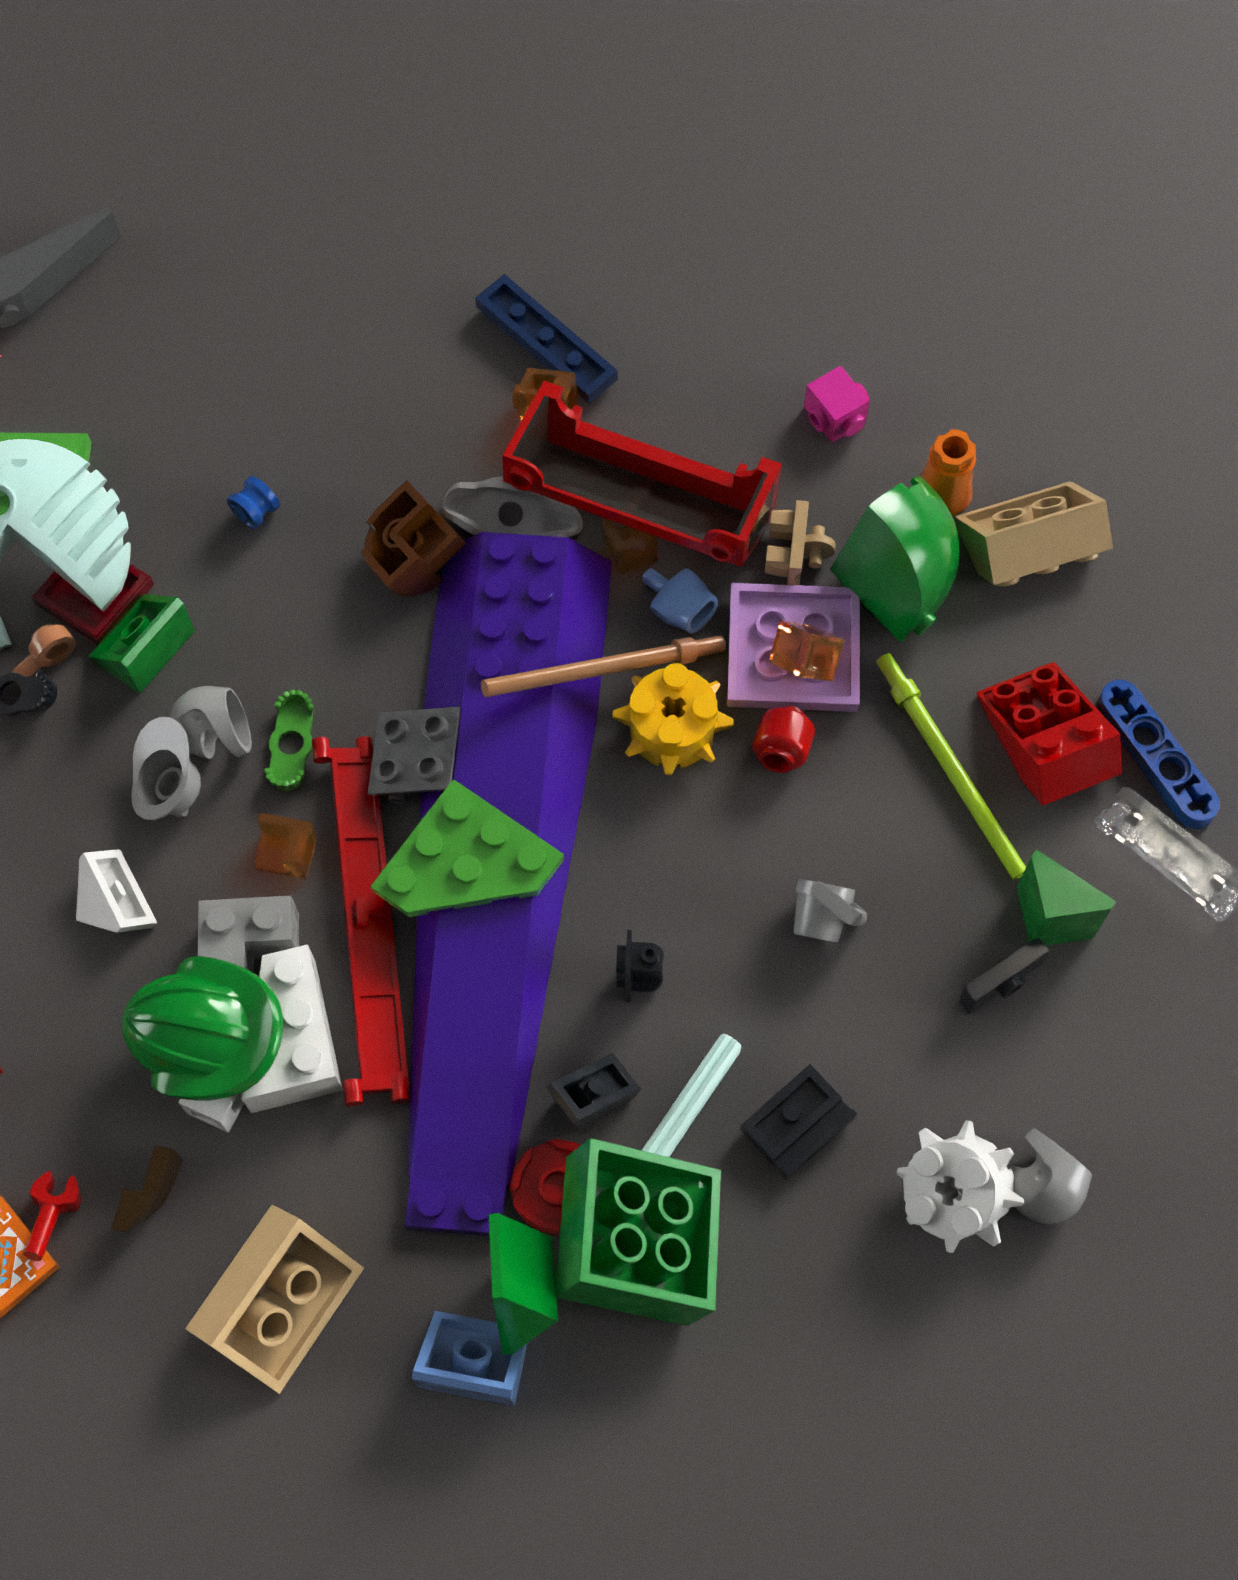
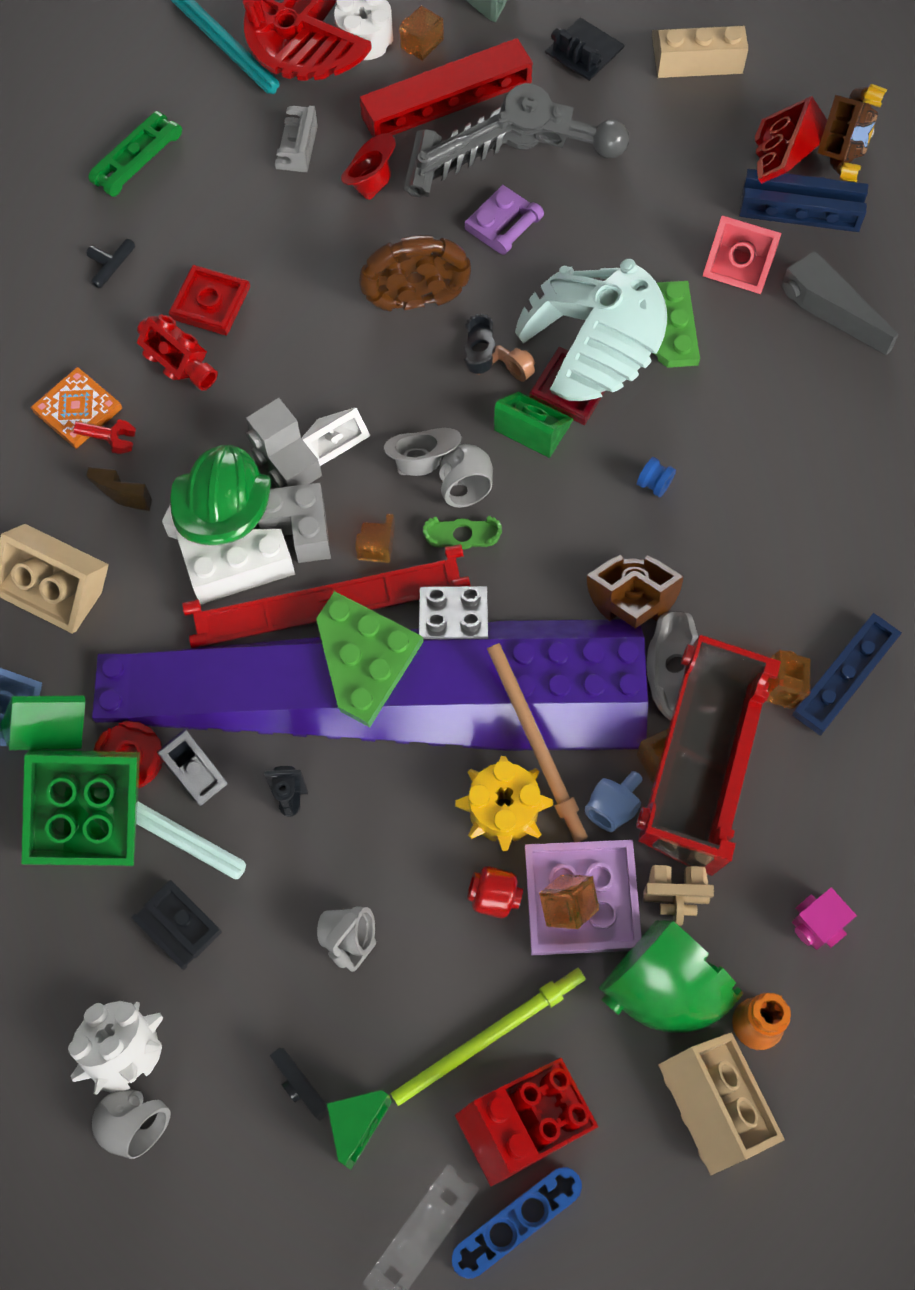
camera: 85 degrees right, 0 degrees up
(129, 955) = (280, 447): none -> light grey brick

